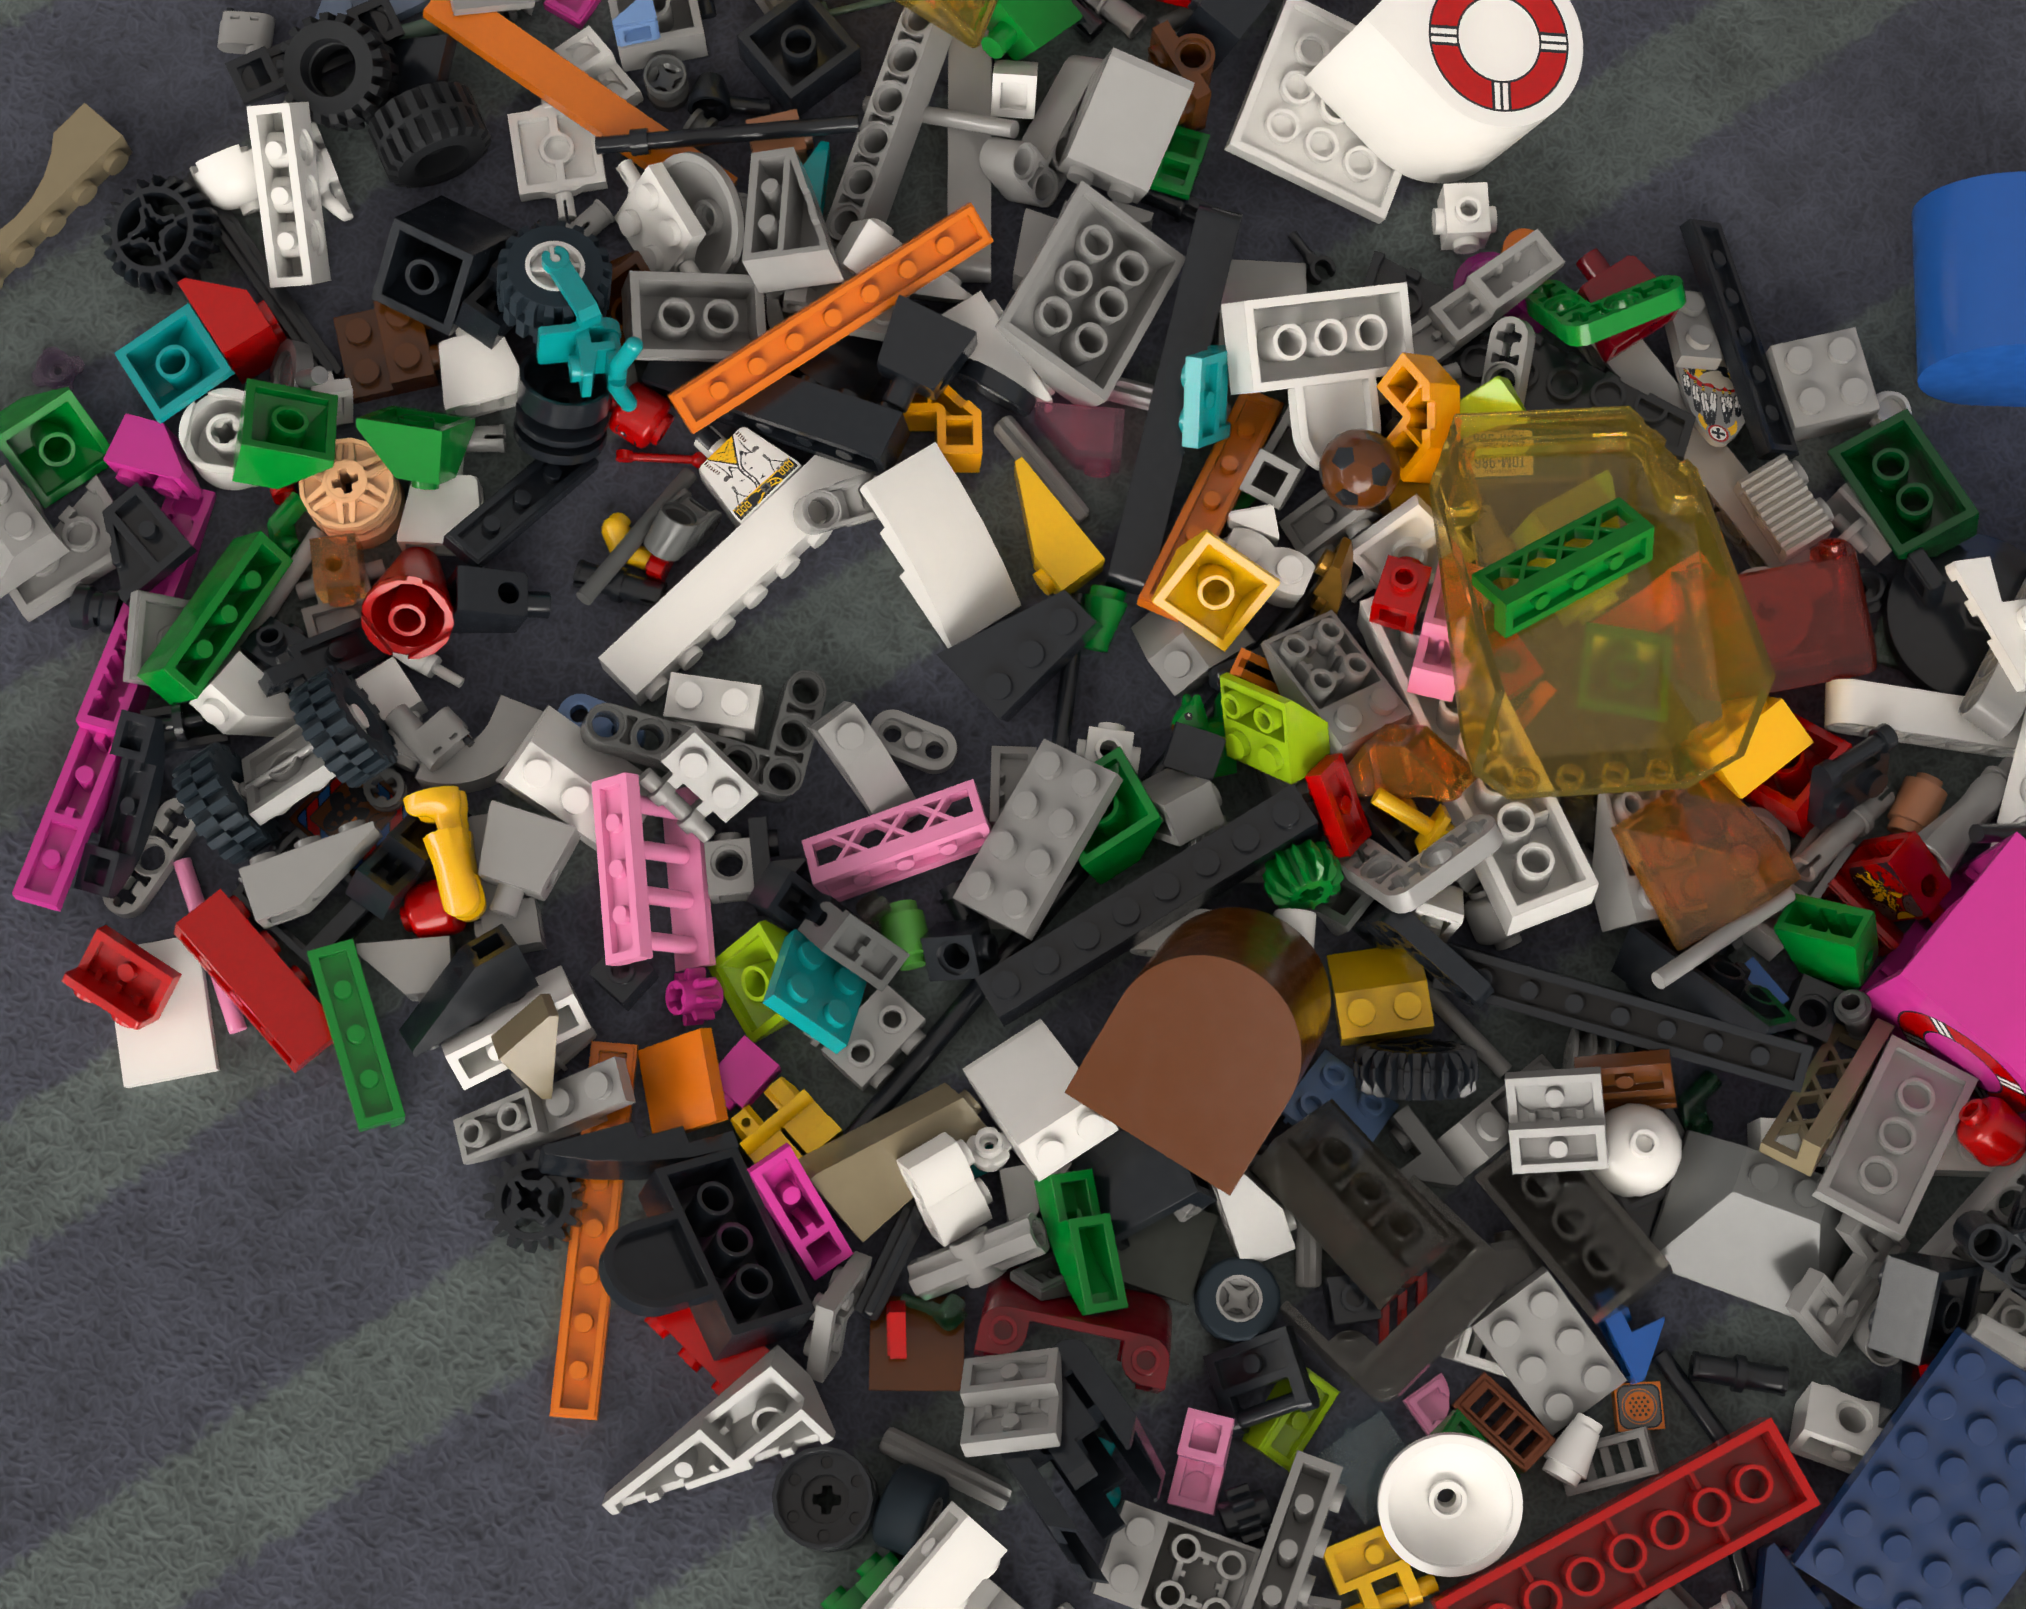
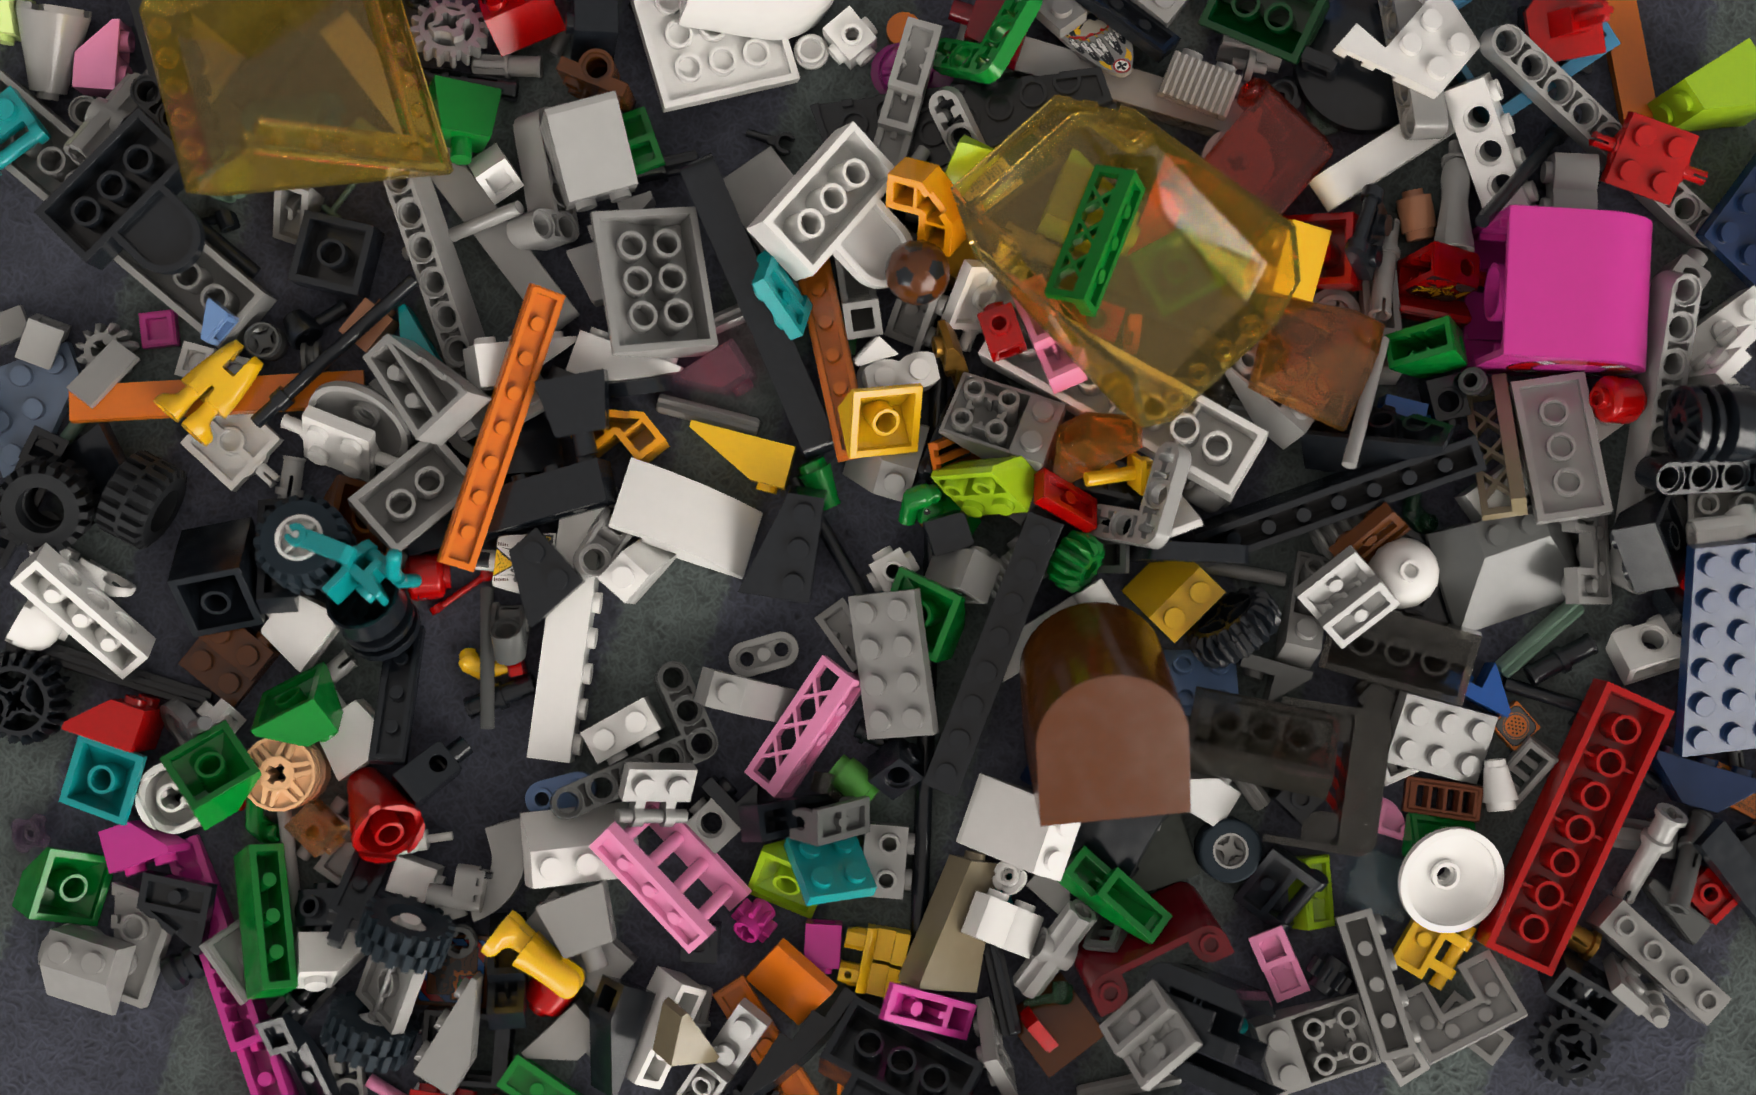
camera: 30 degrees left, 10 degrees up
(584, 81) = (214, 386): none -> yellow piece
(755, 494) = (542, 576): none -> black wing
(853, 559) = (636, 570): none -> white slope
(1188, 694) = (915, 499): none -> green arm
(1415, 204) = (811, 51): none -> white plate
(1732, 1334) = (1538, 638): none -> sand green axle

